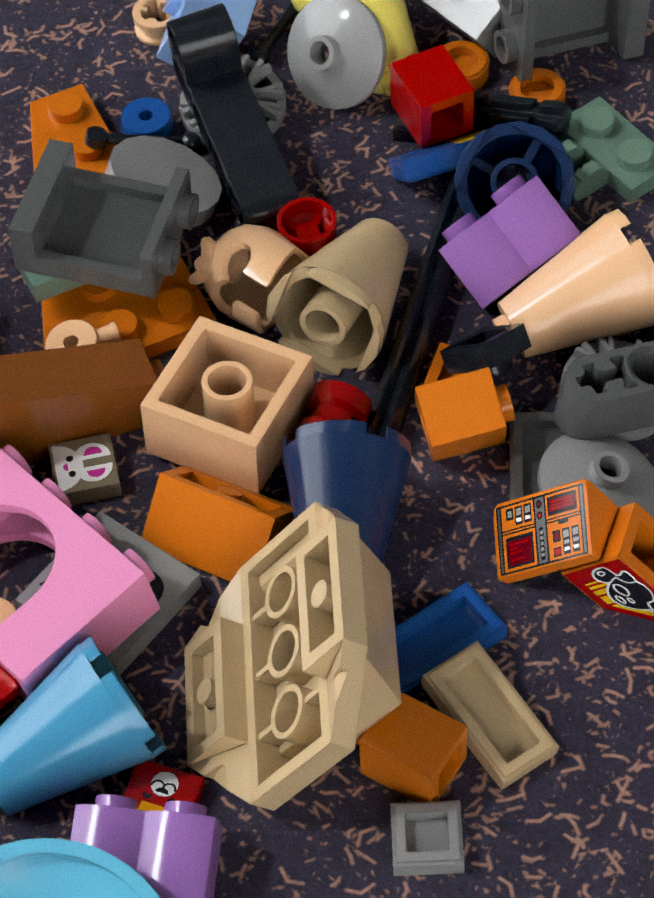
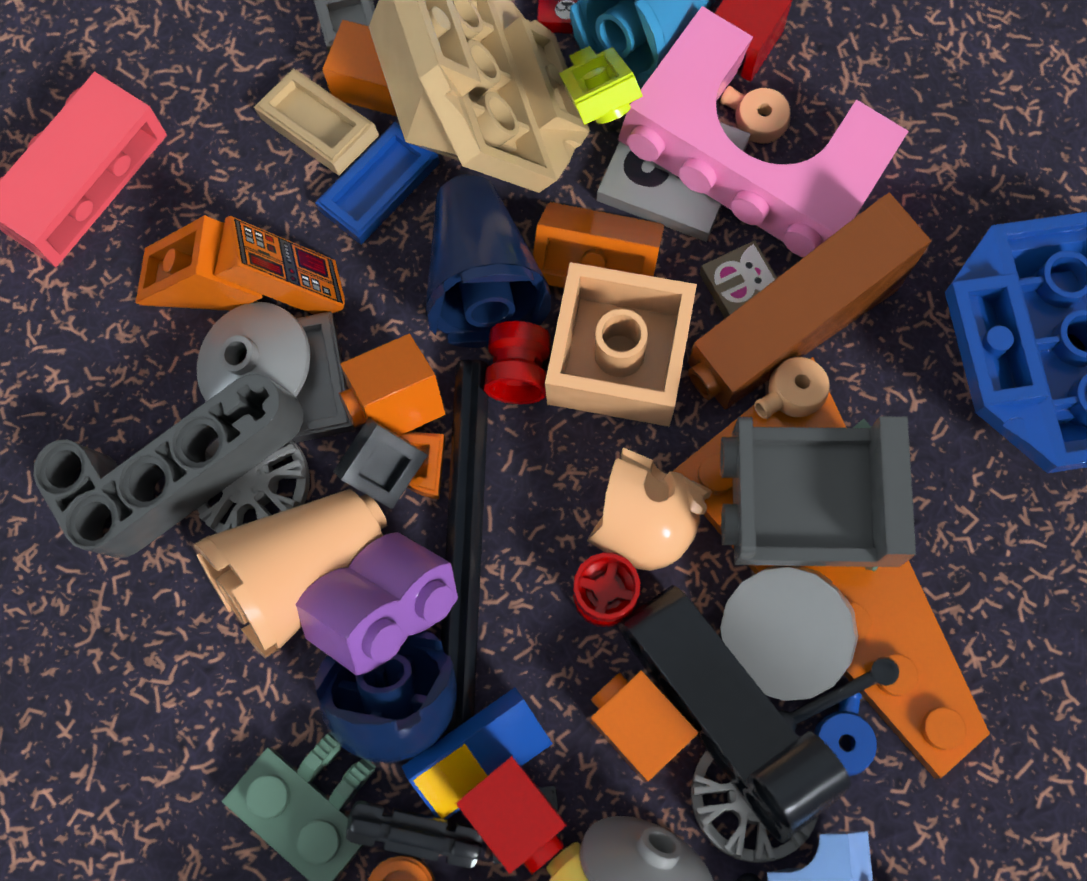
camera: 165 degrees right, 20 degrees up
(166, 621) = (600, 85): none -> neon yellow hinge
(311, 145) = (640, 724): none -> orange brick
(341, 297) = (540, 518): tan cone -> none

